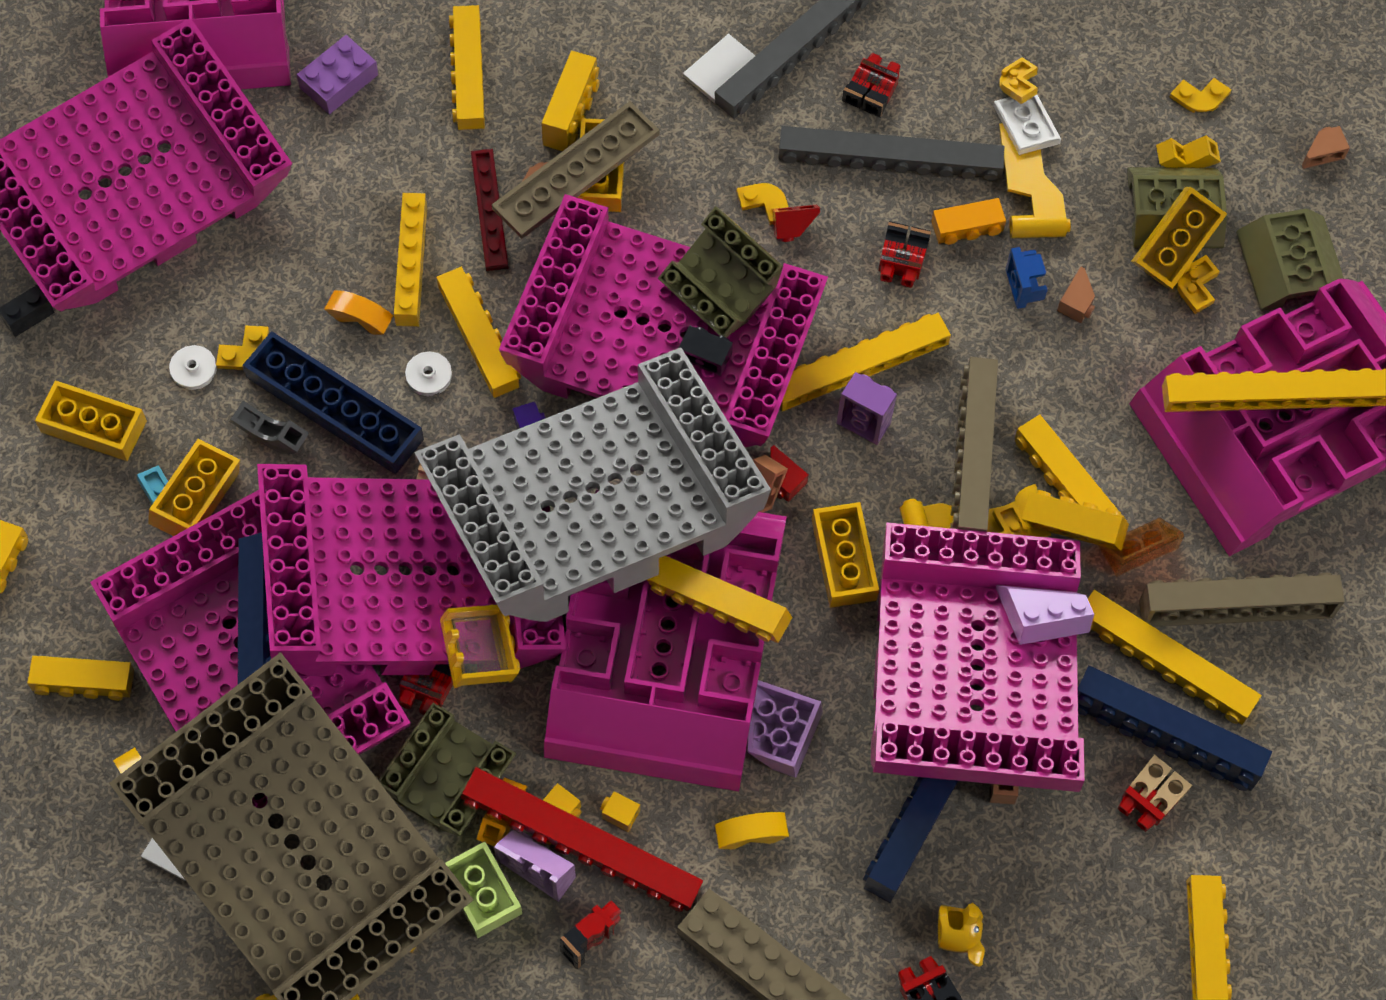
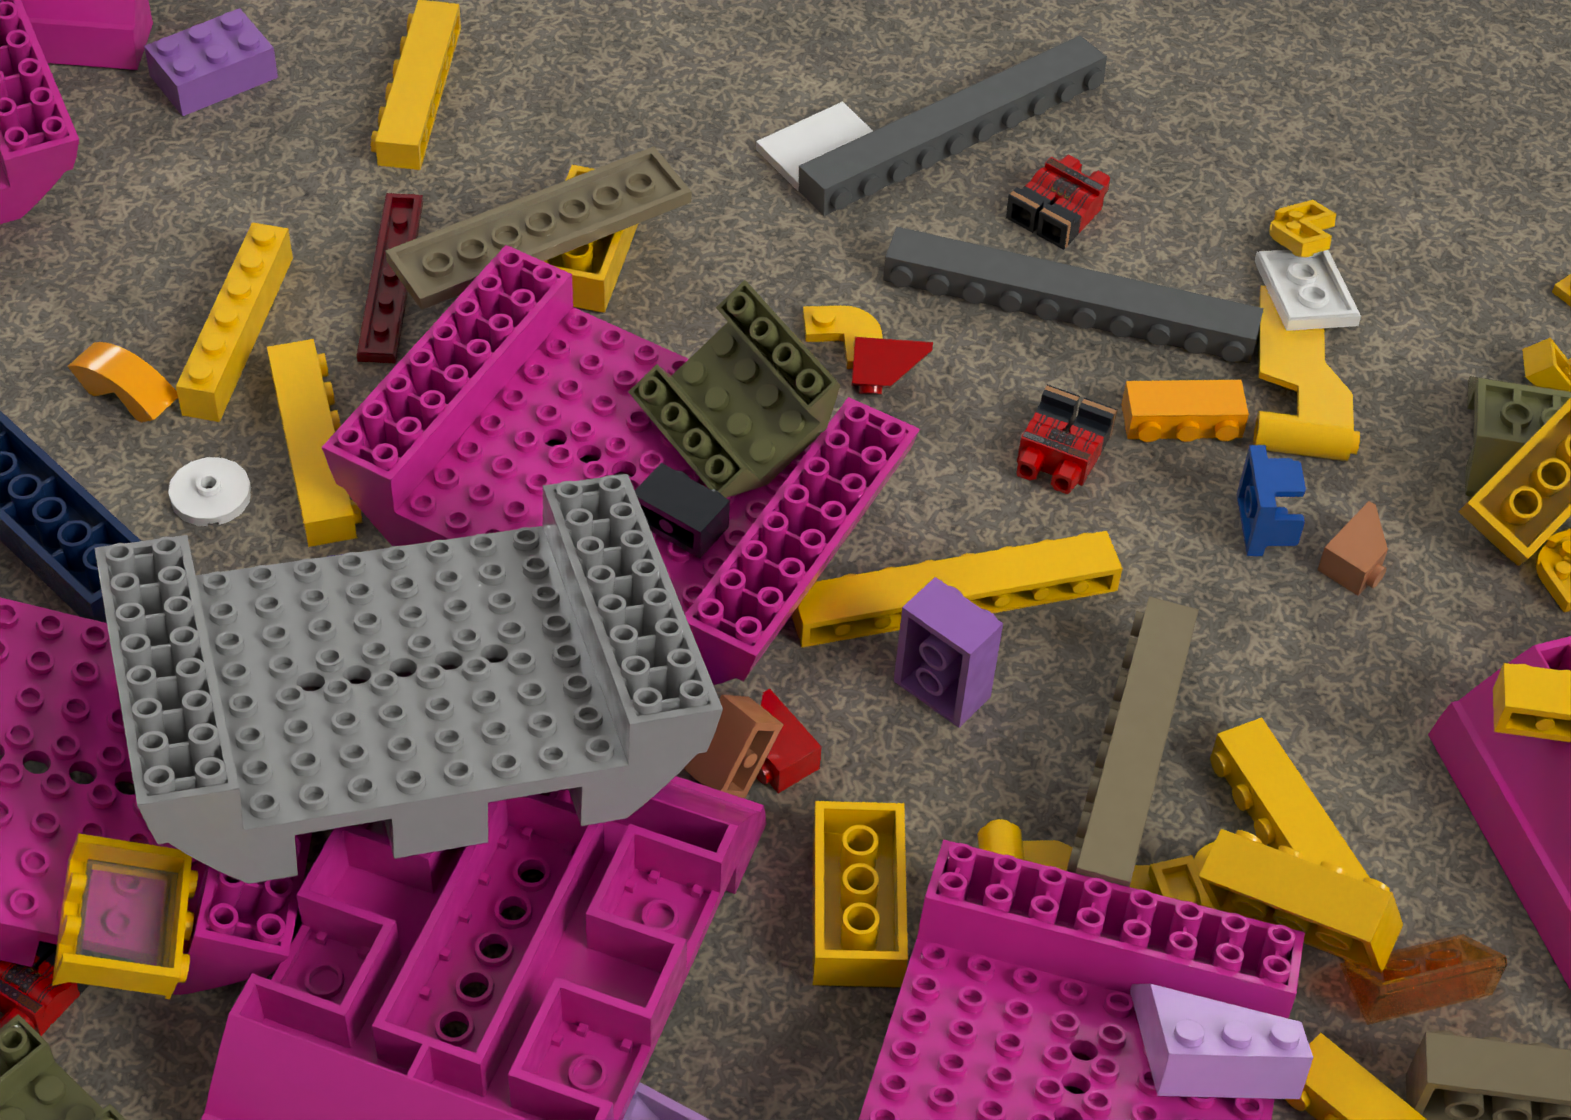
camera: 10 degrees right, 15 degrees down
(570, 101) = (565, 133): yellow brick -> none
(721, 600) = (592, 904): yellow brick -> none

